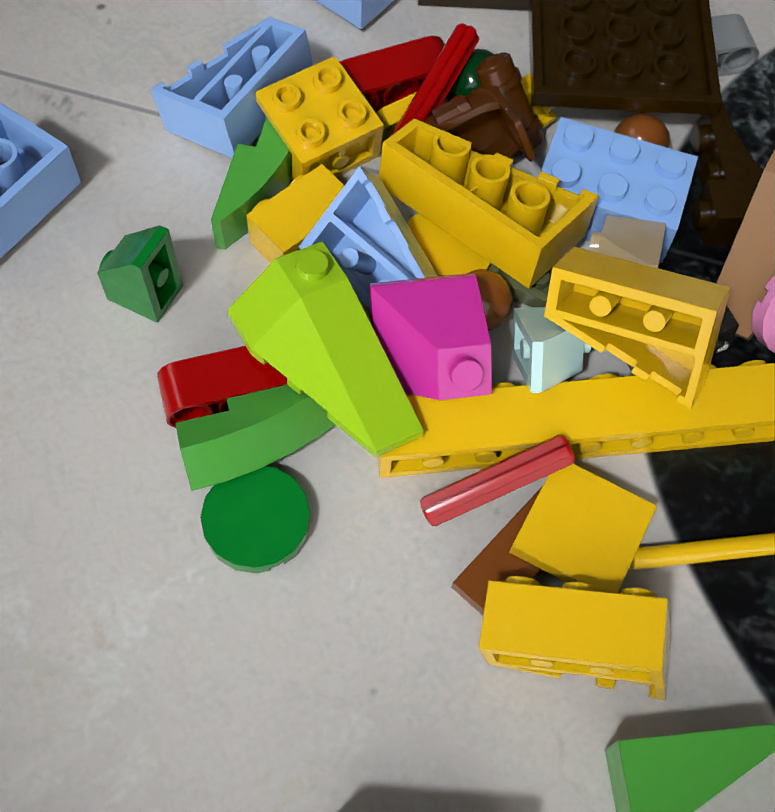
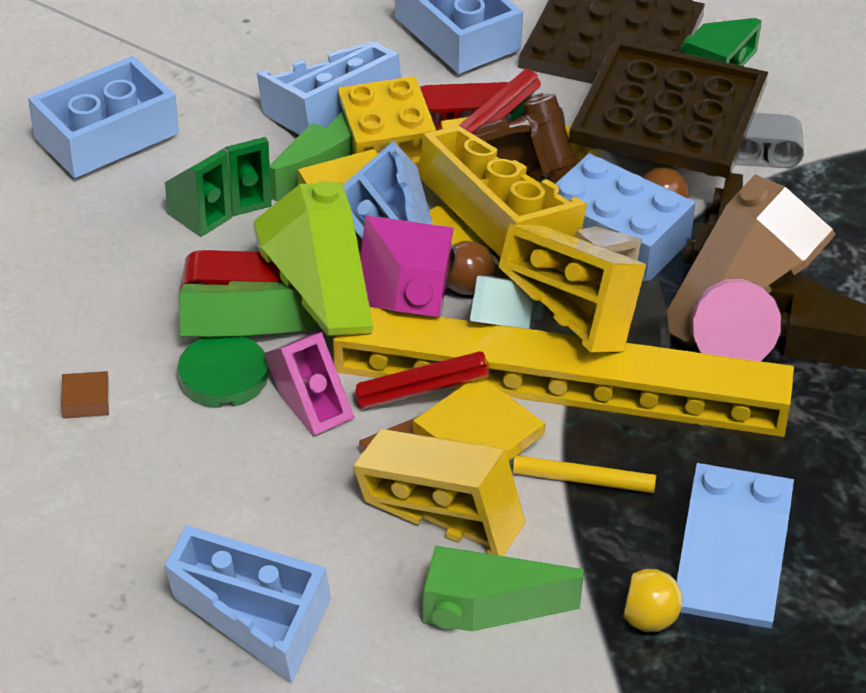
camera: 20 degrees right, 20 degrees down
(104, 604) = (85, 394): none -> dark orange tile
(191, 229) = (249, 176): none -> green slope
(367, 515) = (310, 383): none -> dark pink slope

